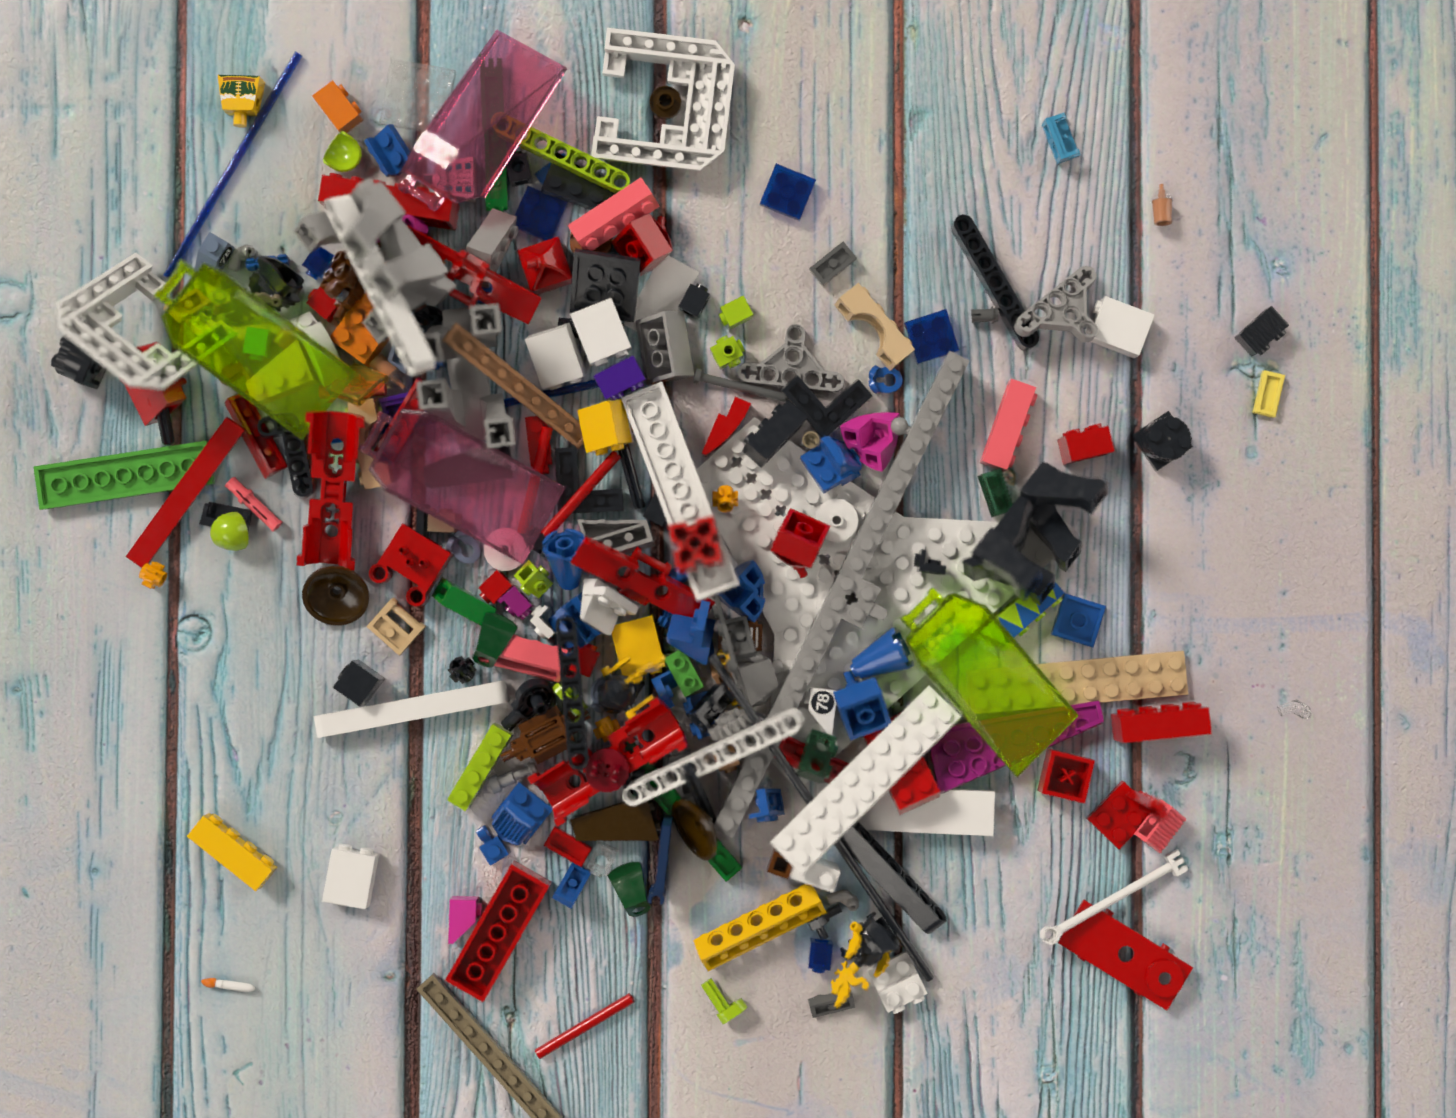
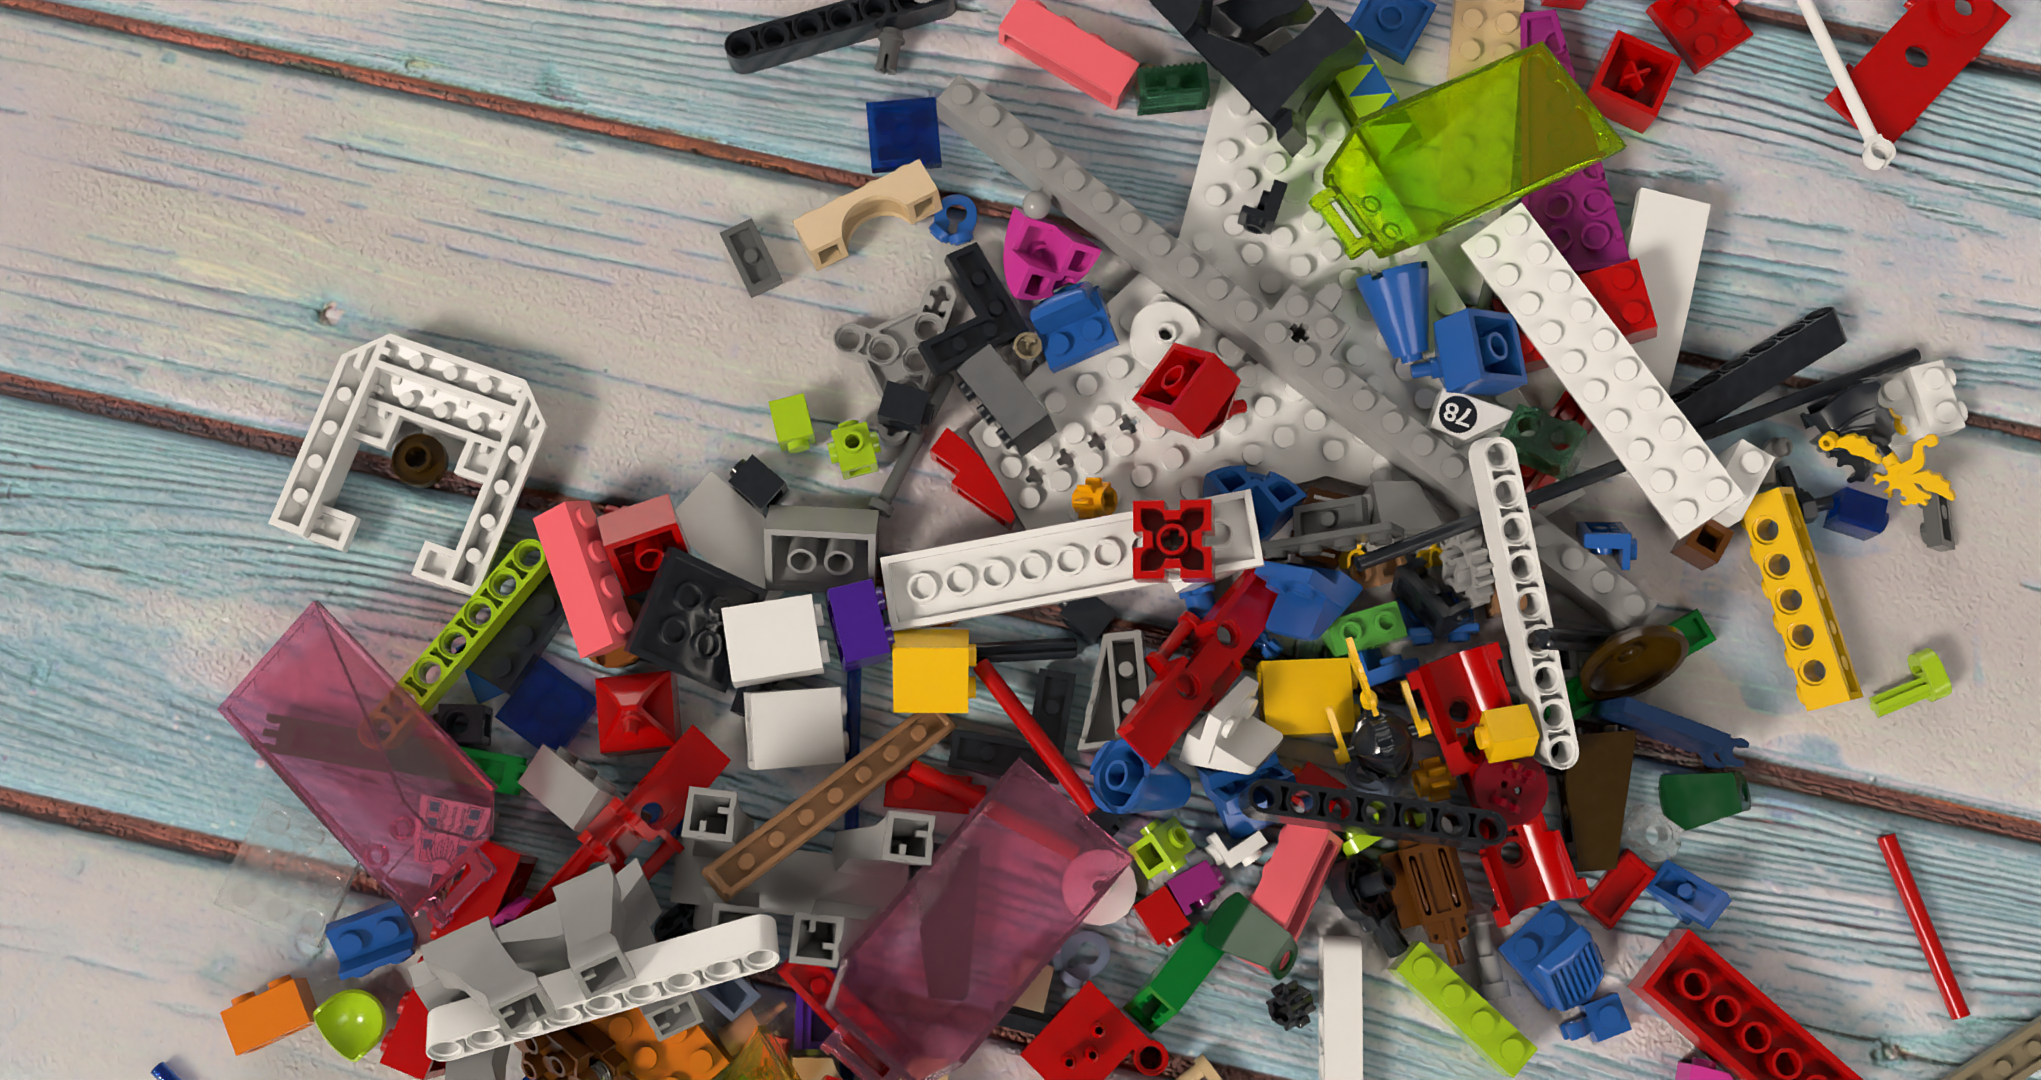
camera: 85 degrees left, 10 degrees down
(635, 761) = (1507, 733): none -> yellow brick
(757, 376) = (905, 408): none -> black brick
(787, 192) = (618, 302): clear blue plate -> none

